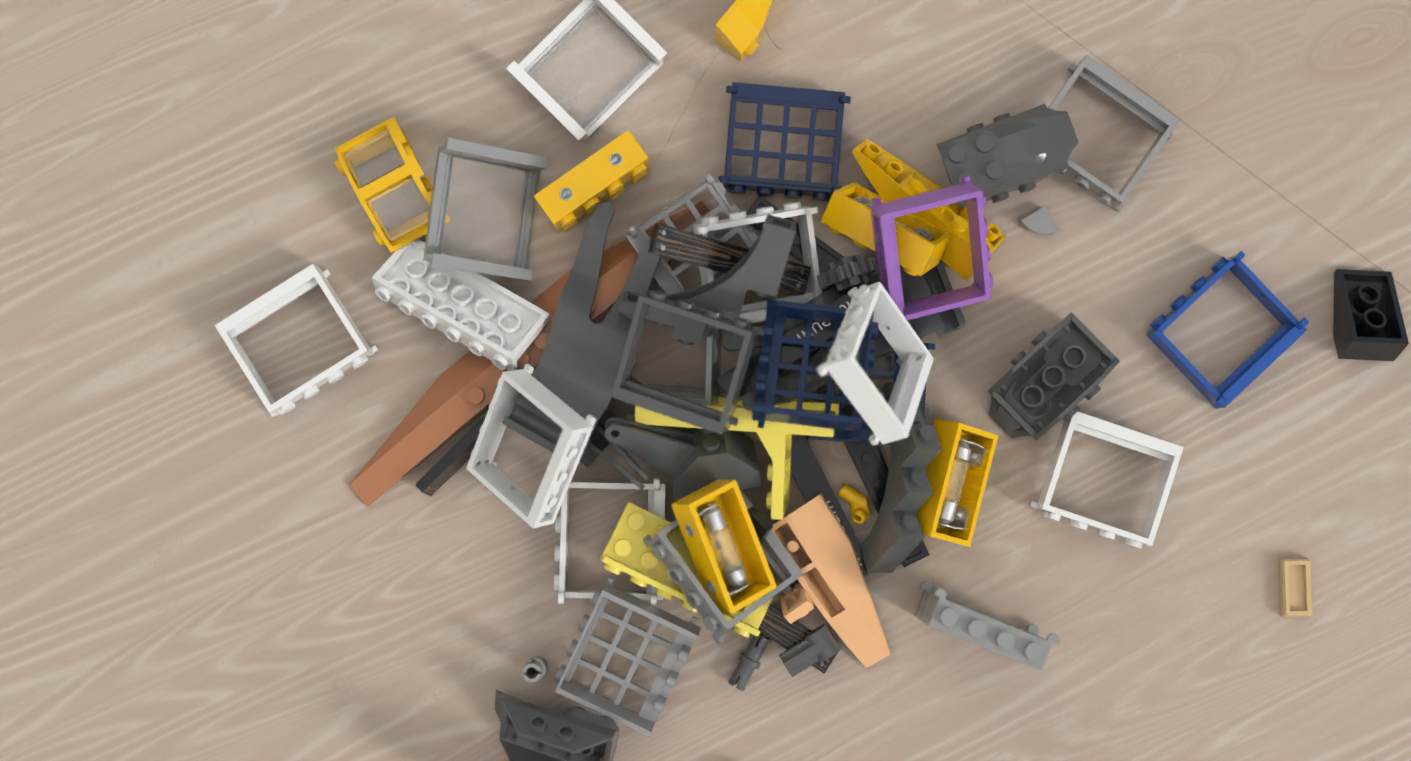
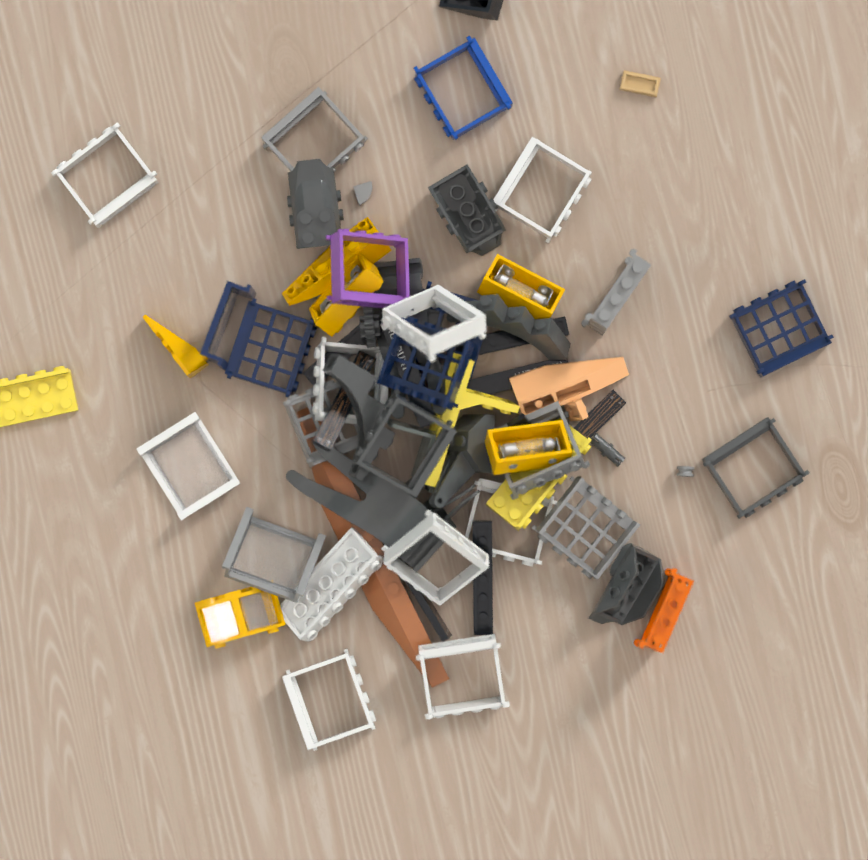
camera: 70 degrees left, 0 degrees up
(410, 509) = (459, 647): none -> white window
(508, 525) = (484, 582): none -> black tile
(531, 675) = (575, 589): light grey pin -> none
(593, 182) = (269, 479): yellow piece -> none
(807, 55) = (221, 319): none -> dark blue piece
(815, 647) = (607, 403): dark grey piece -> none
(858, 503) = (520, 354): yellow arm -> none

